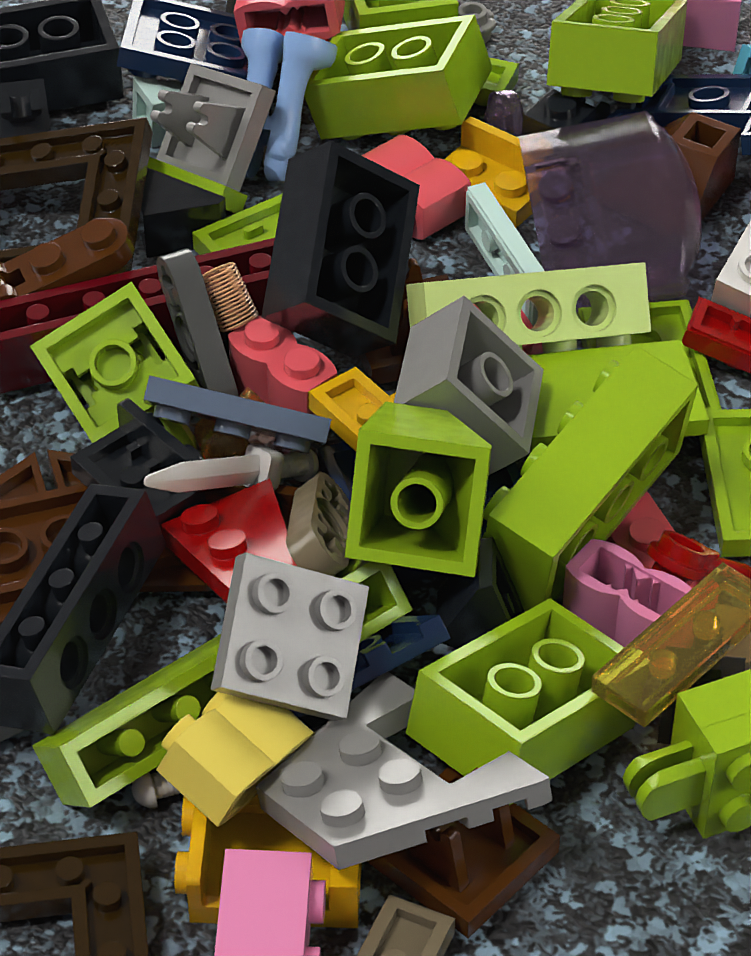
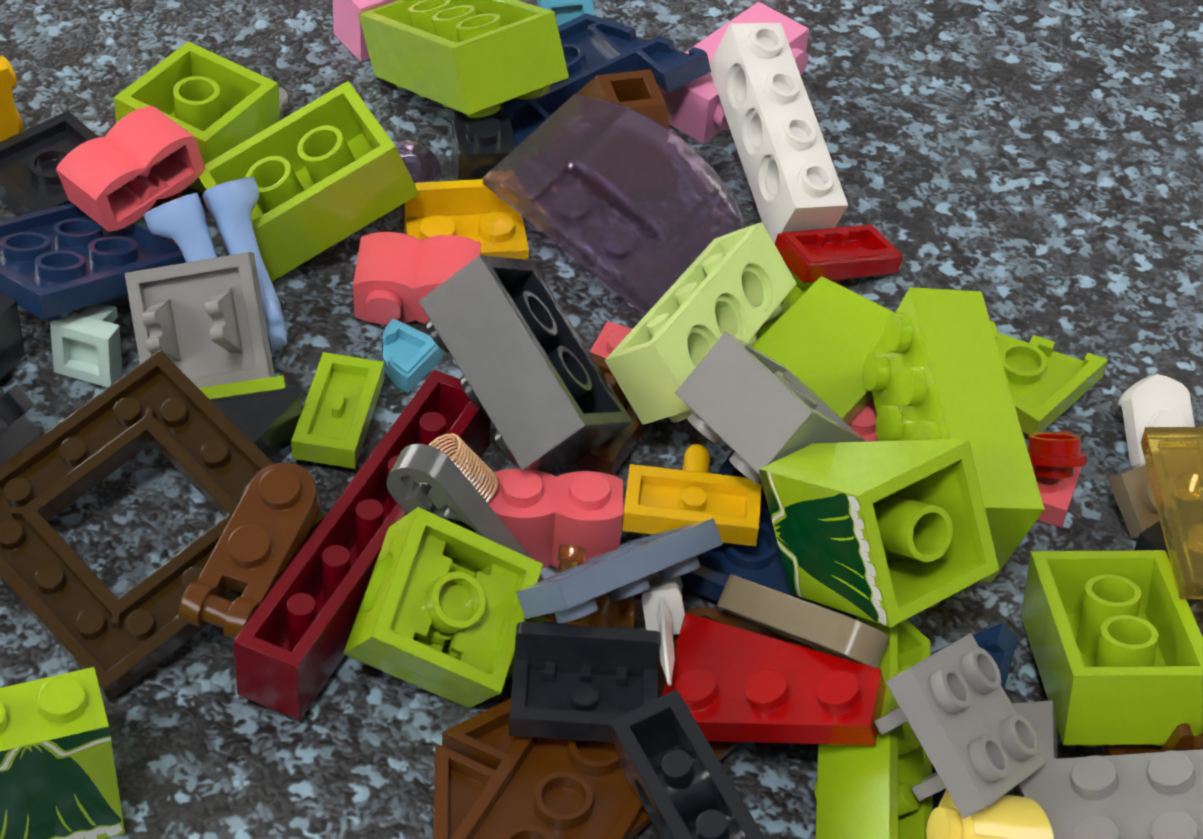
camera: 50 degrees left, 0 degrees up
(480, 602) = (982, 604): black slope -> none
(498, 239) = (584, 290): light aqua tile -> none
(616, 591) = (1082, 513): bright pink brick -> none

